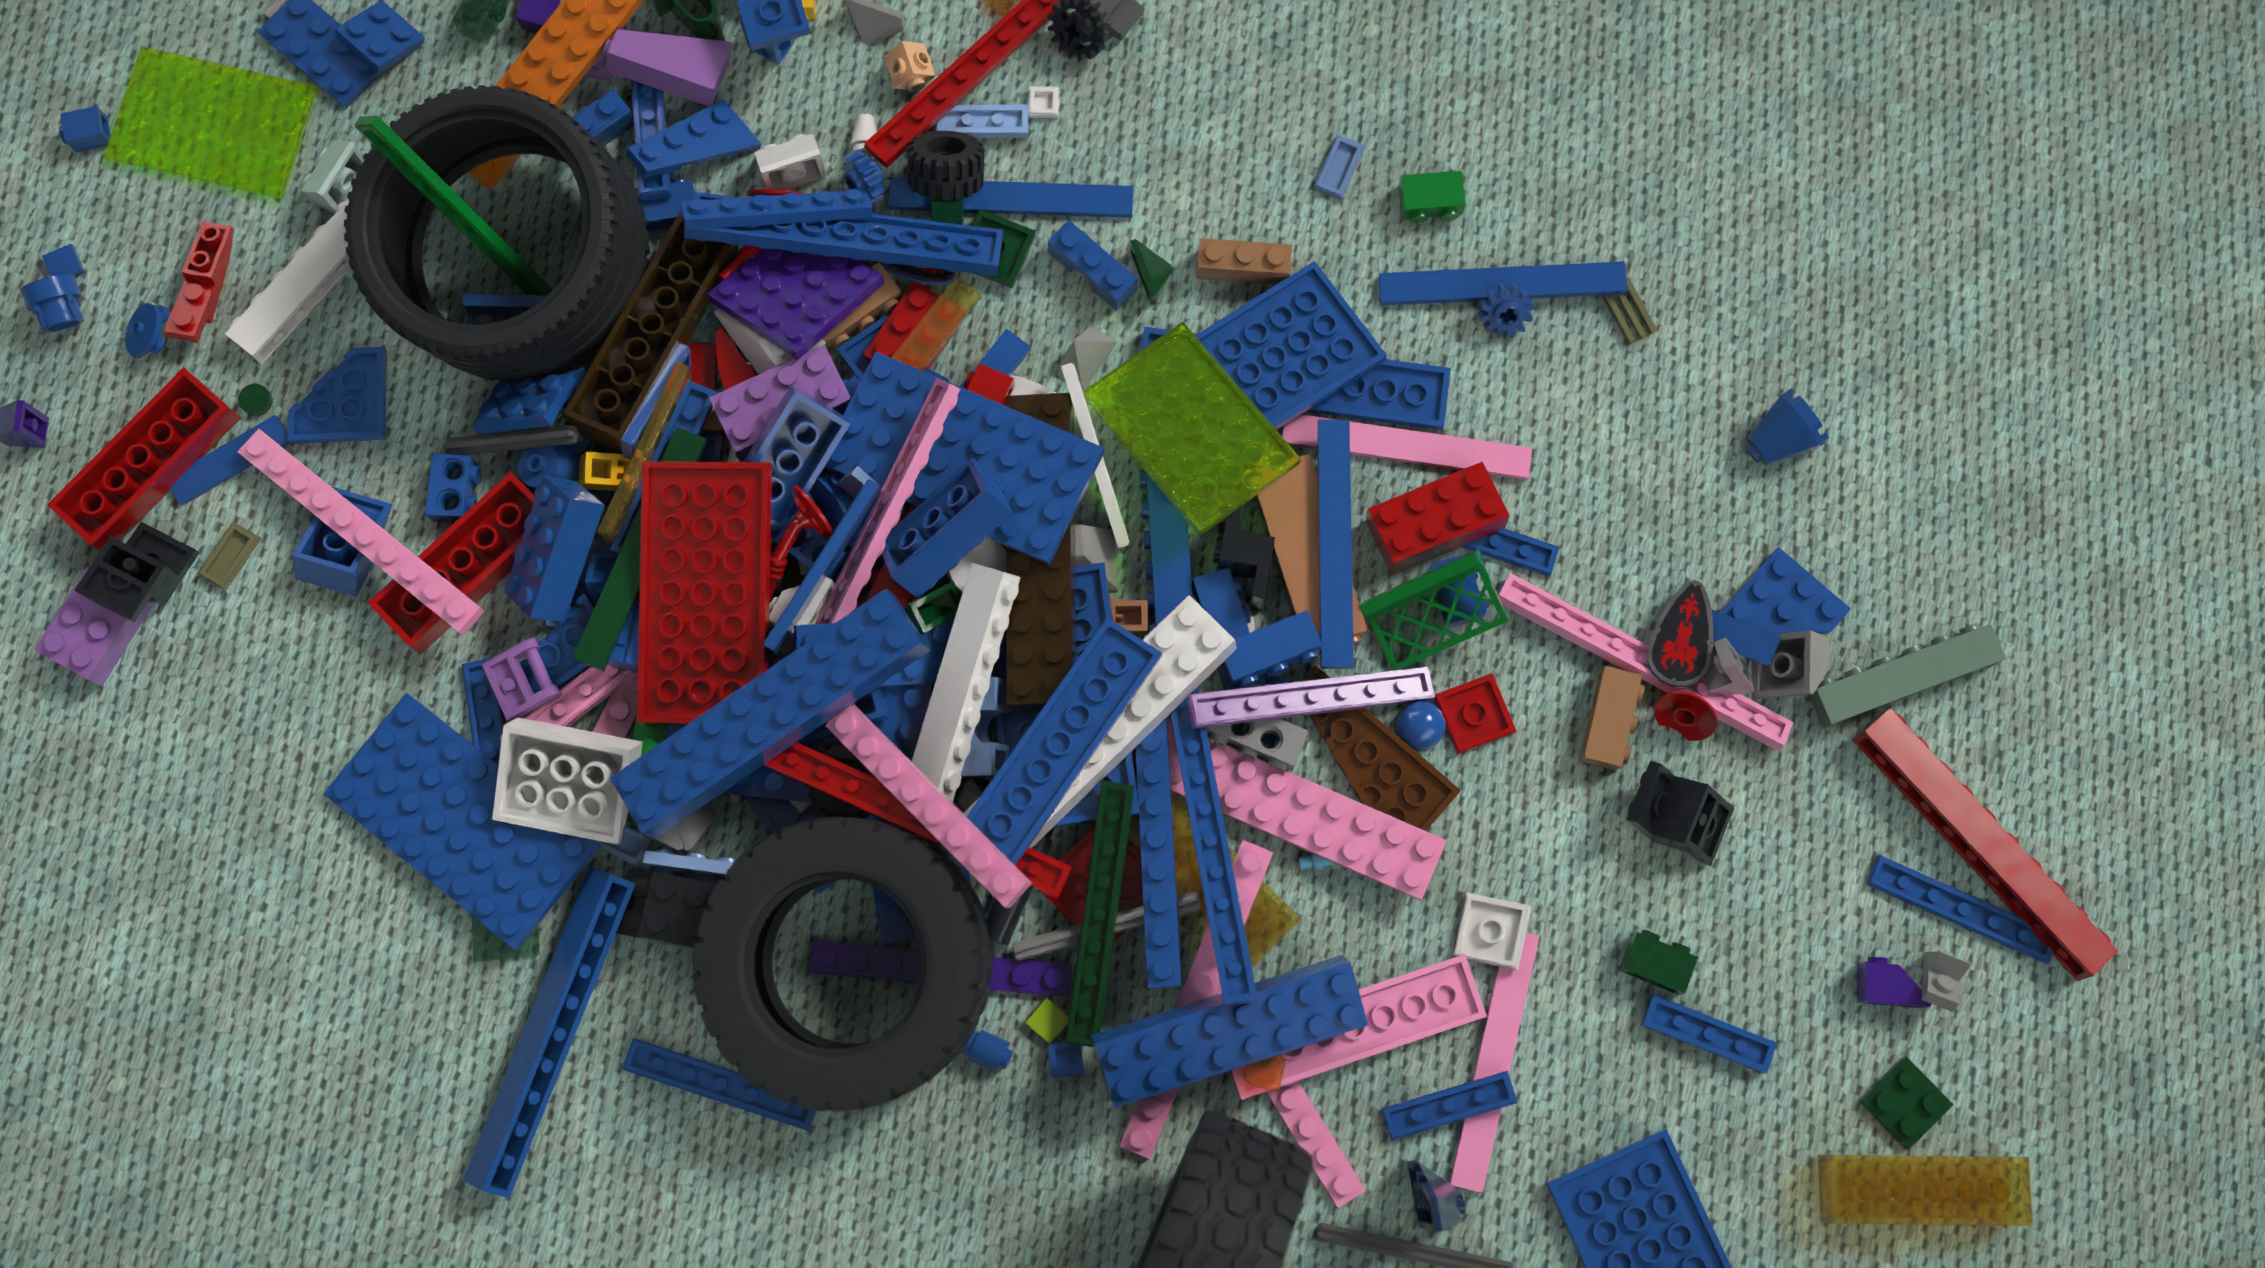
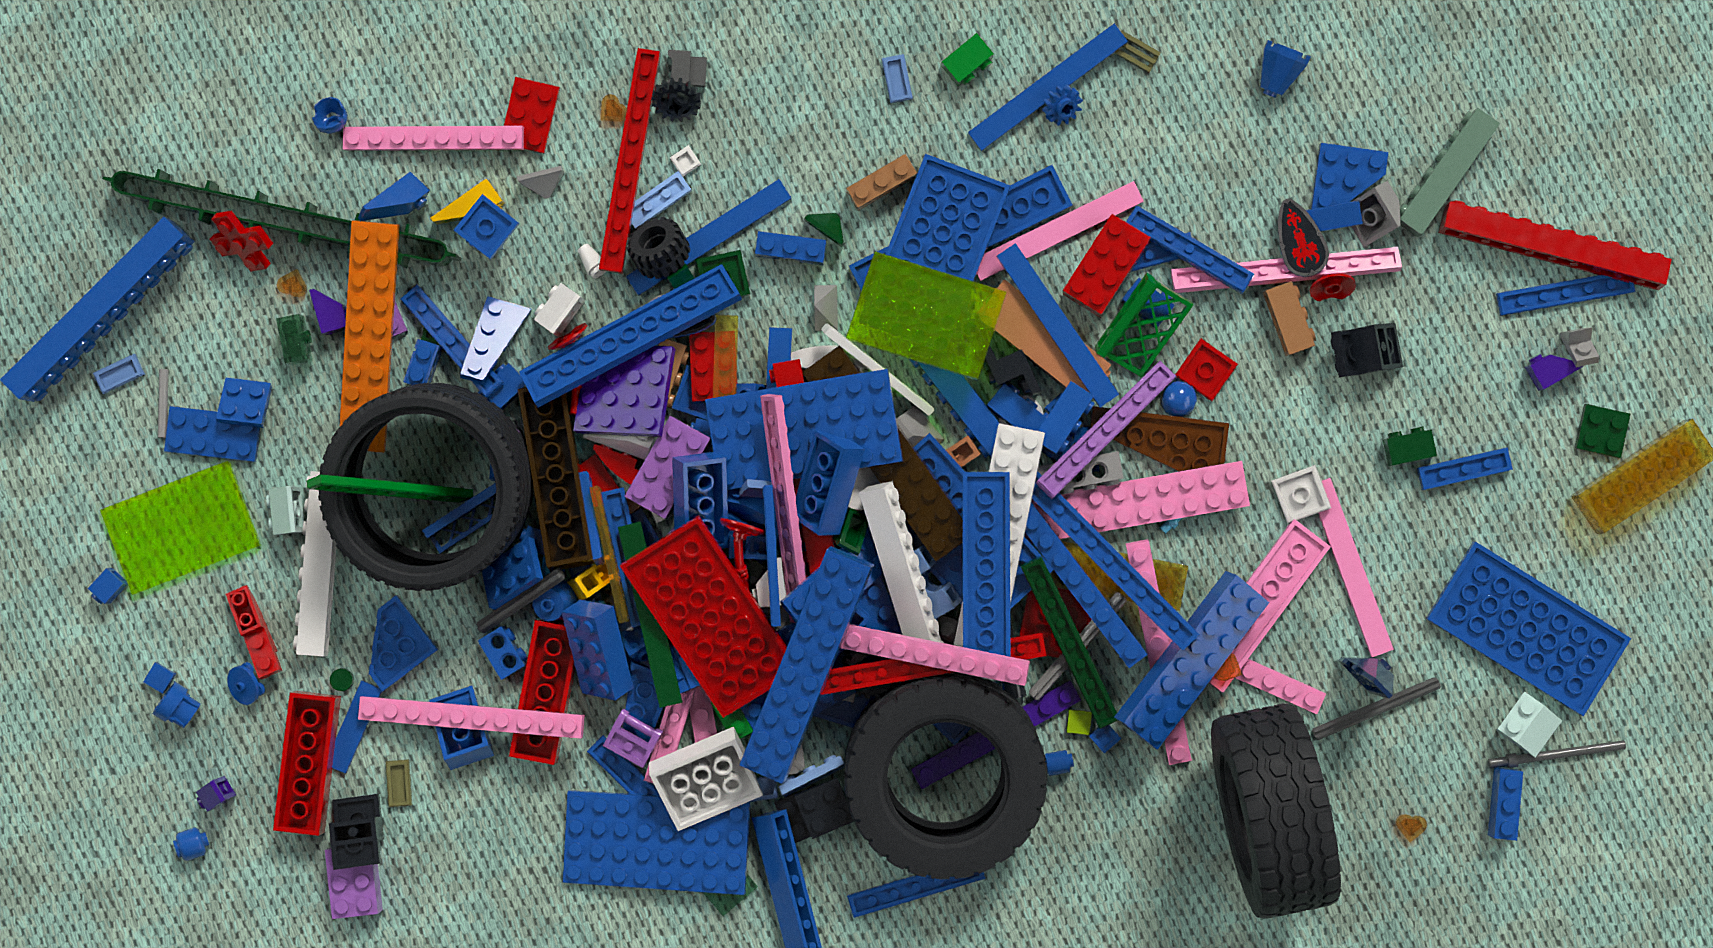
camera: 30 degrees left, 10 degrees up
(670, 62) = (441, 297): medium lavender slope -> none
(775, 209) = (578, 350): blue plate -> none
(864, 175) = (612, 289): blue gear -> none
(909, 66) = (588, 197): light nougat brick -> none
(1449, 1105) = (1342, 613): blue tile -> none
(1548, 567) = (1191, 250): none -> blue tile
(1728, 671) = (1340, 243): light grey slope -> none

